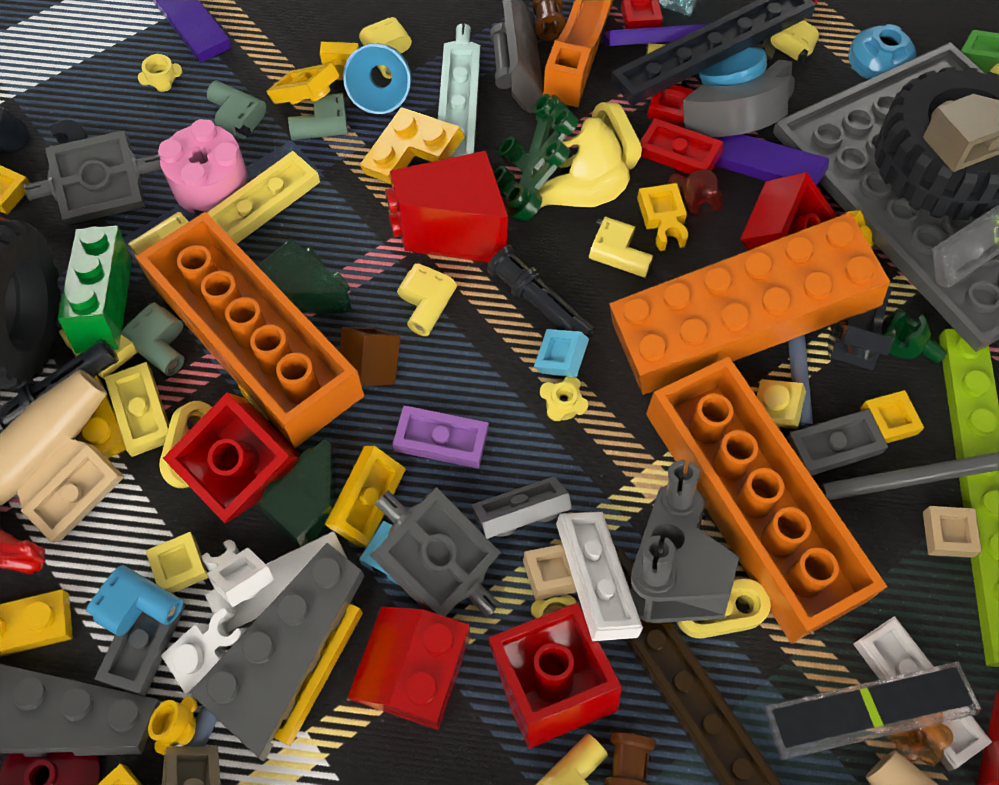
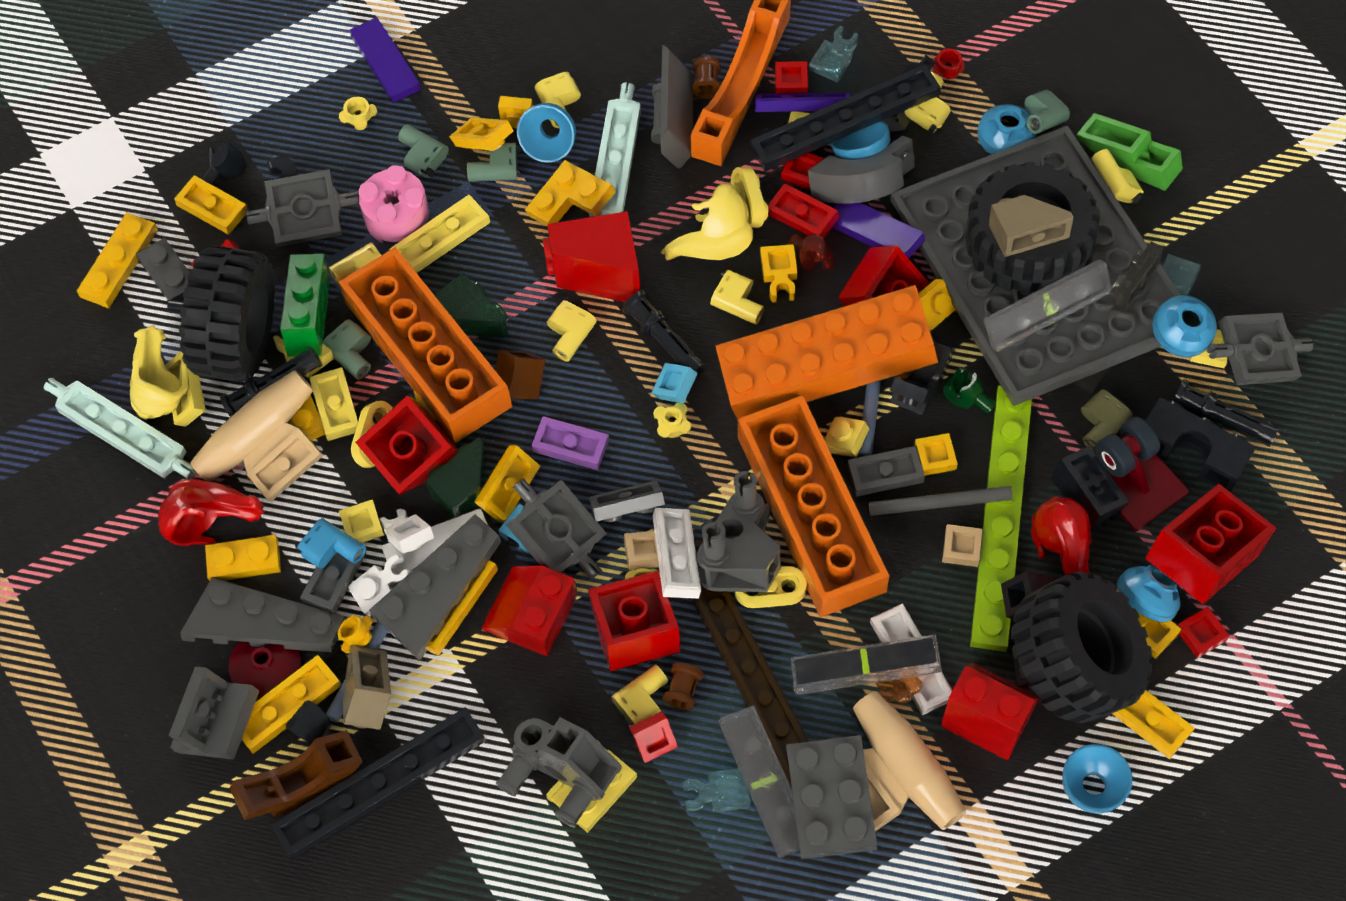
camera: 10 degrees right, 0 degrees up
(523, 198) = (658, 249): dark green plant -> none
(922, 29) = (1045, 111): none -> sand green piece

